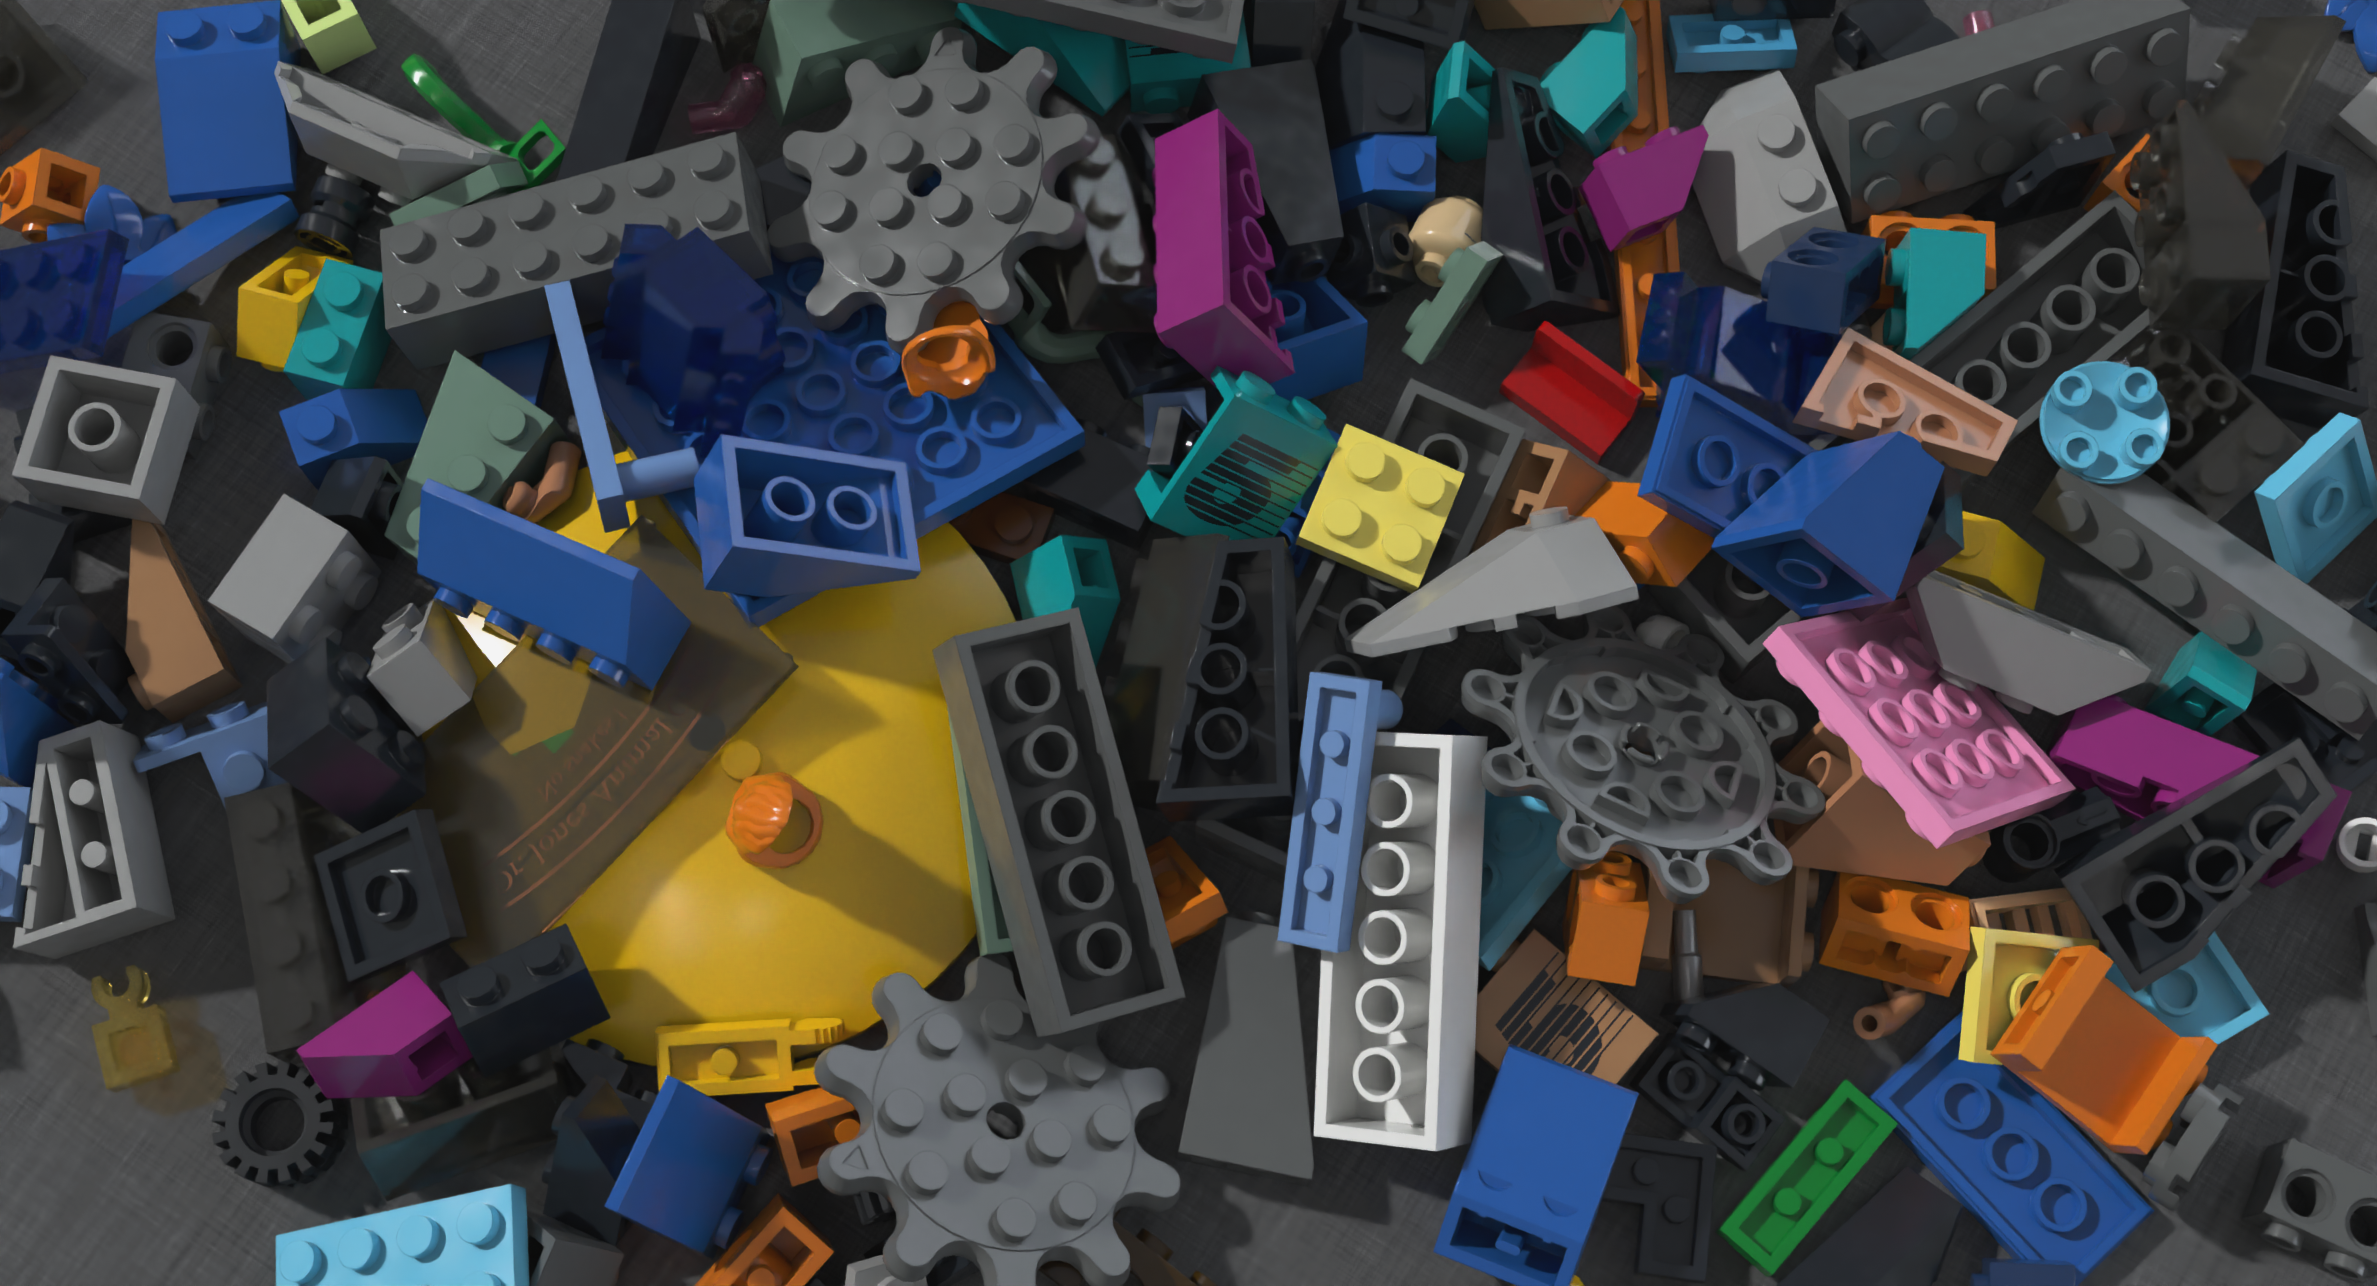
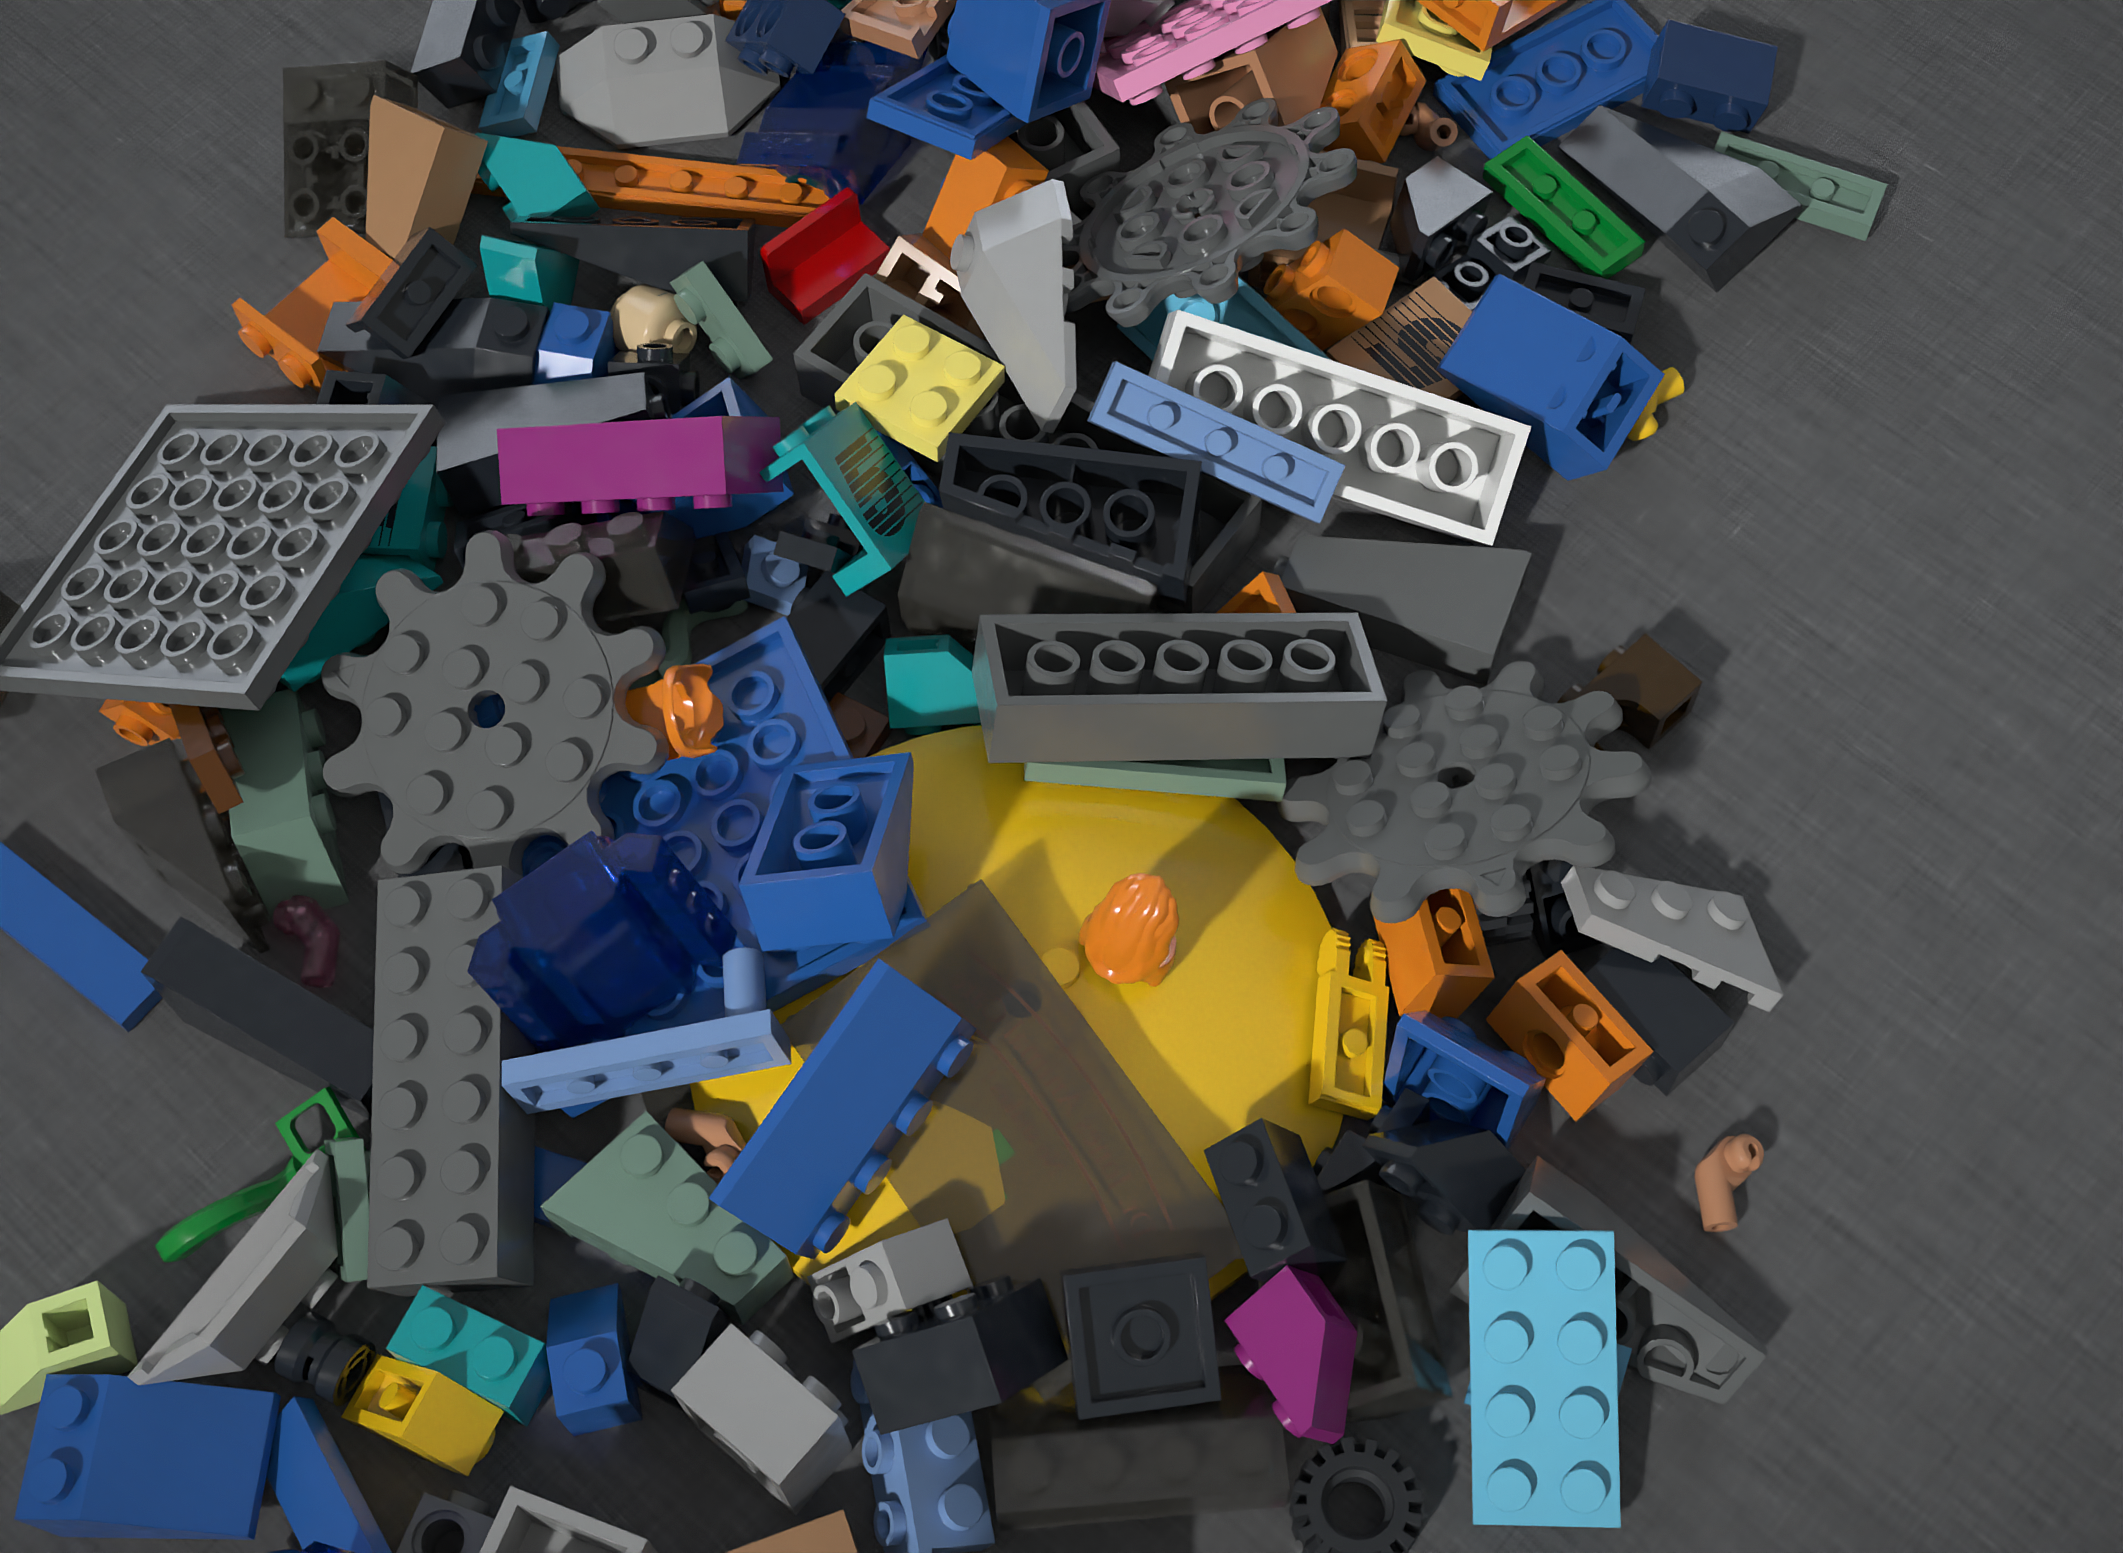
camera: 75 degrees left, 10 degrees down
(1643, 189) = (650, 160): magenta slope -> none

